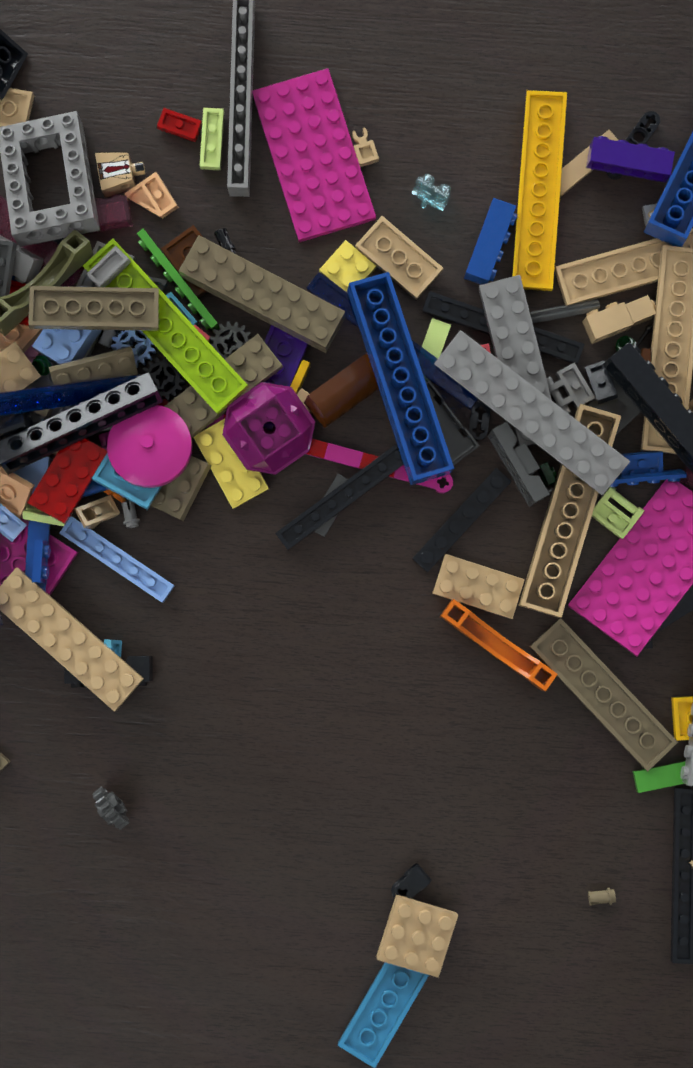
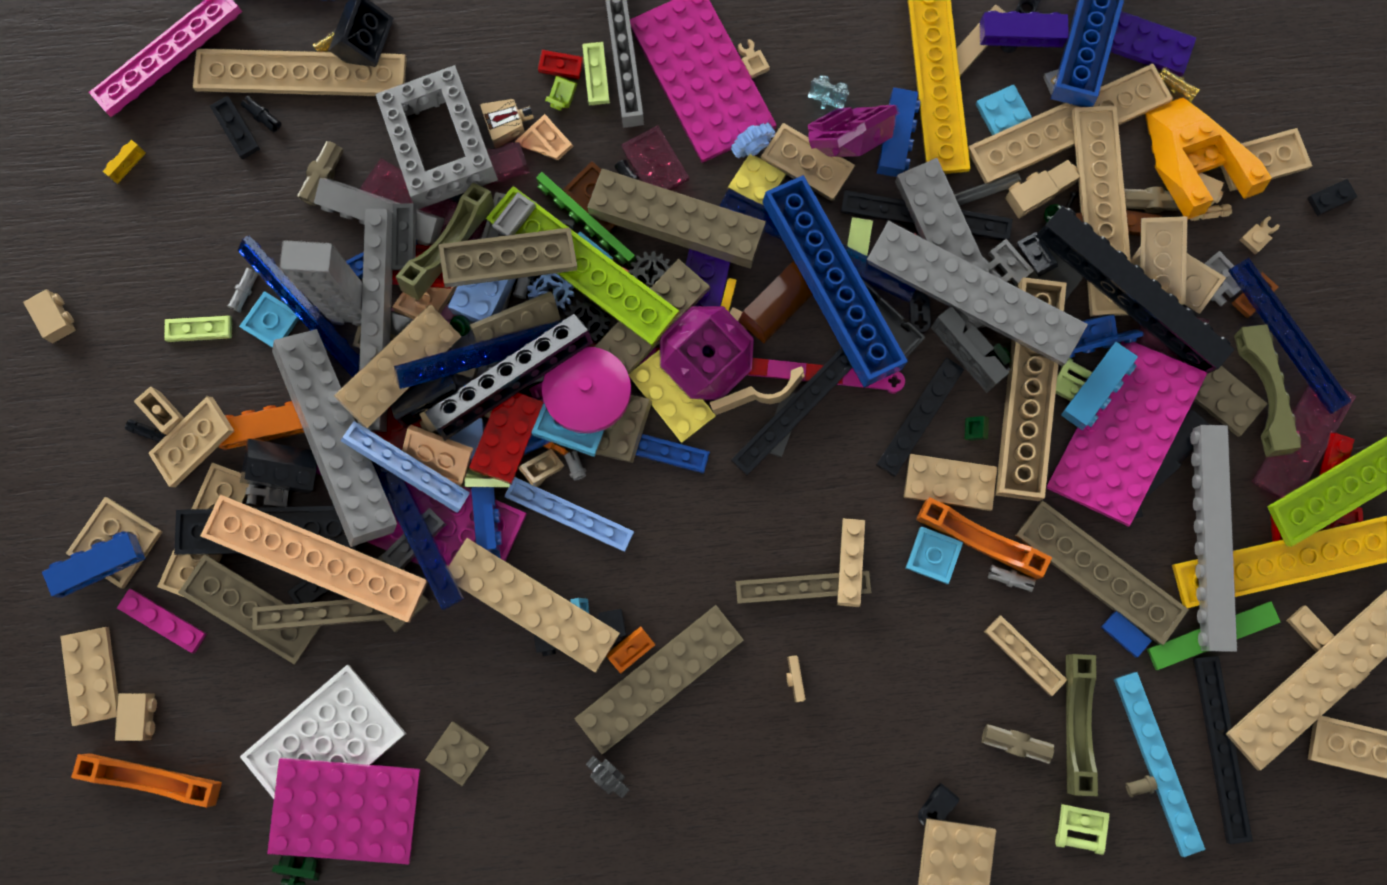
camera: 10 degrees left, 5 degrees down
(152, 694) = (630, 649): none -> orange plate
(175, 154) = (561, 93): none -> lime bracket
(175, 725) = (658, 679): none -> dark tan plate
(223, 517) = (672, 453): none -> blue tile
(254, 233) = (655, 160): none -> clear pink plate
(299, 746) = (794, 678): none -> tan plate
(301, 474) = (750, 394): none -> tan piece
(322, 662) = (793, 588): none -> dark tan plate
(349, 229) = (753, 140): none -> light blue gear
(370, 647) = (851, 563): none -> tan plate
(445, 234) = (852, 131): none -> magenta piece
(450, 652) = (934, 555): none -> medium azure plate
(494, 839) = (1017, 743): none -> dark tan piece
(512, 539) = (976, 428): none -> dark green plate
(517, 759) = (1025, 656): none -> tan plate
(518, 686) = (1011, 578): none -> light grey pin
(543, 920) = (1082, 821): none -> yellowish green plate
(560, 804) = (1080, 684): none -> olive arch
(596, 235) = (1003, 109): none -> medium azure plate
(615, 754) = (1126, 634): none -> blue tile
(622, 879) = (1159, 764): none -> medium azure plate
(634, 519) = (1099, 386): none -> dark azure brick

